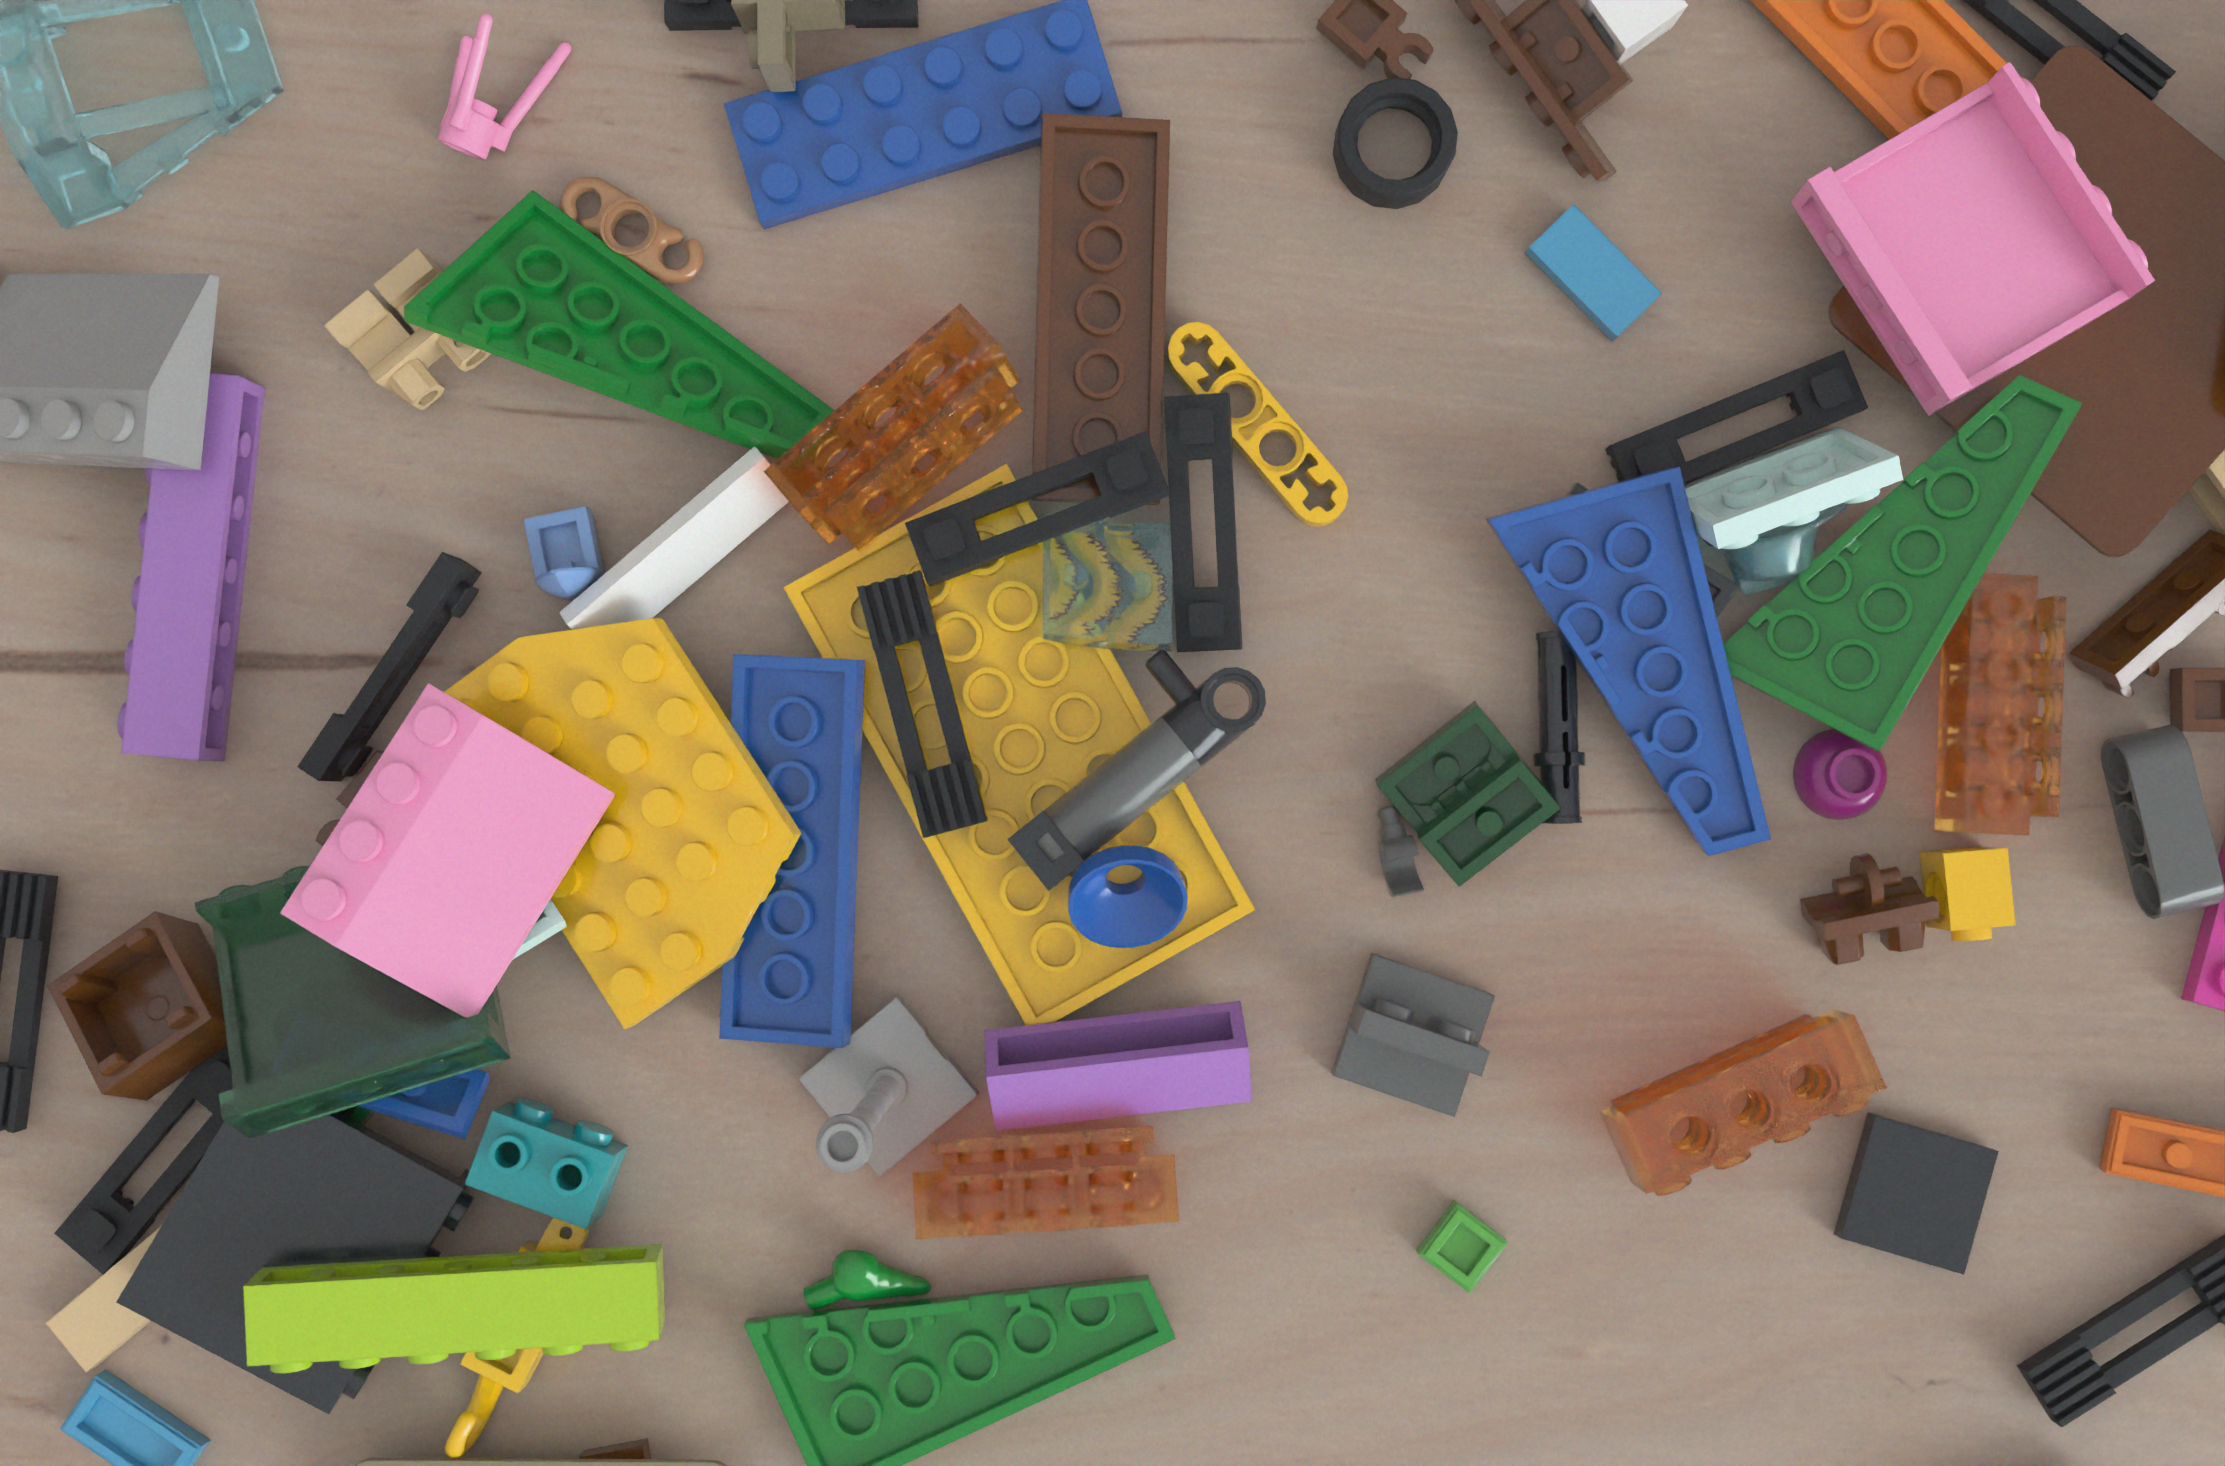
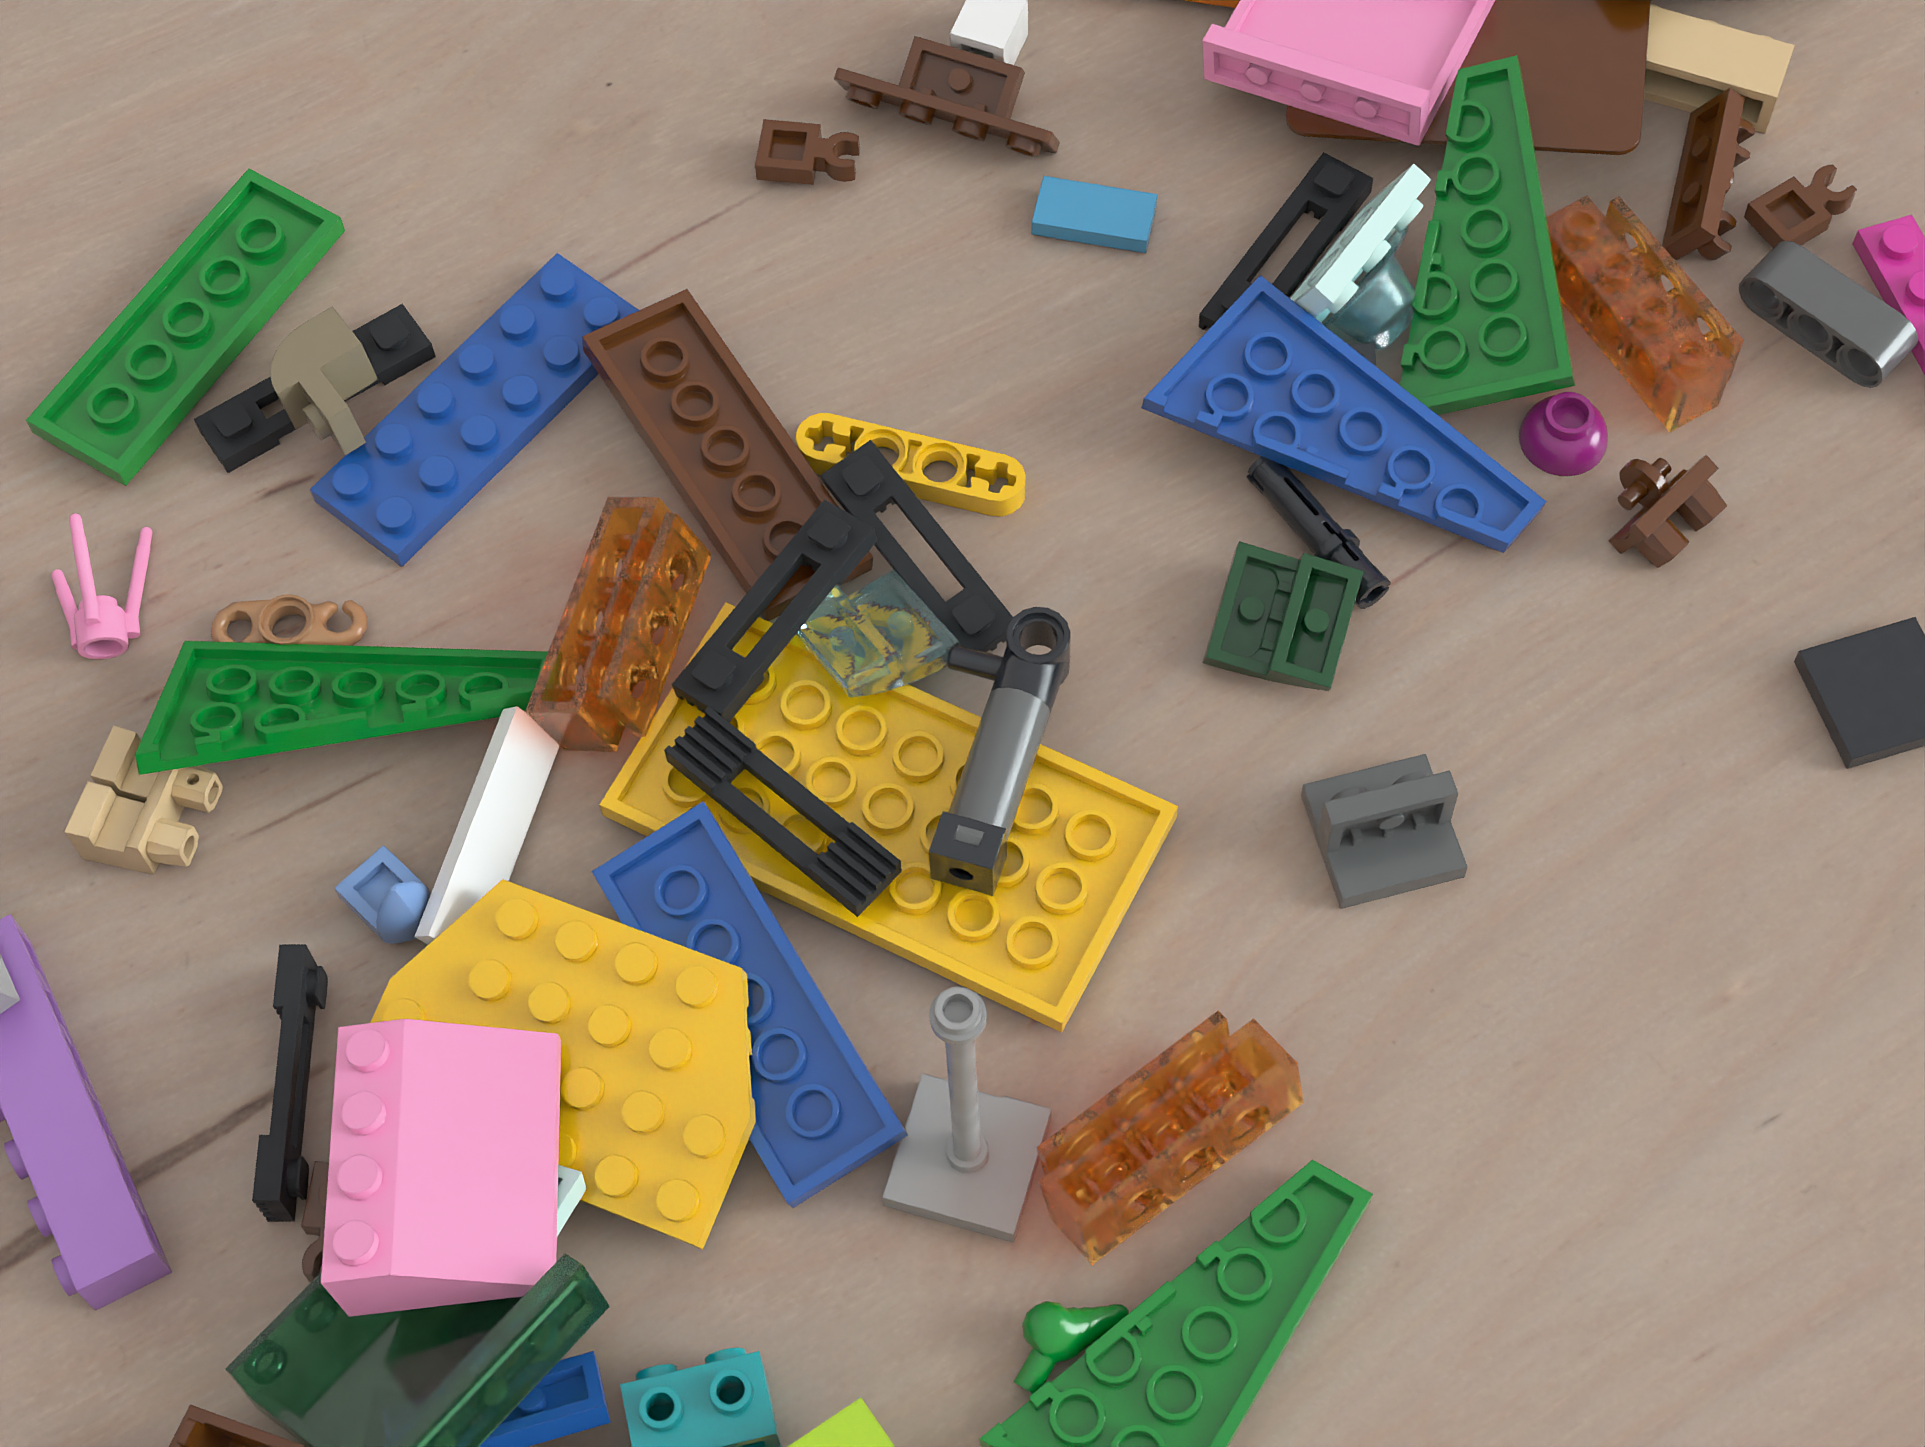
camera: 30 degrees left, 25 degrees down
(1117, 1065) = (1155, 994): medium lavender brick -> none
(1128, 912) = (1087, 844): blue piece -> none
(1397, 855) = (1261, 701): dark grey piece -> none
(1415, 99) = (875, 177): black tyre -> none
(1461, 1246) = (1557, 971): bright green tile -> none
(1836, 1081) = (1681, 694): clear orange brick -> none
(1970, 889) = (1732, 439): yellow brick -> none

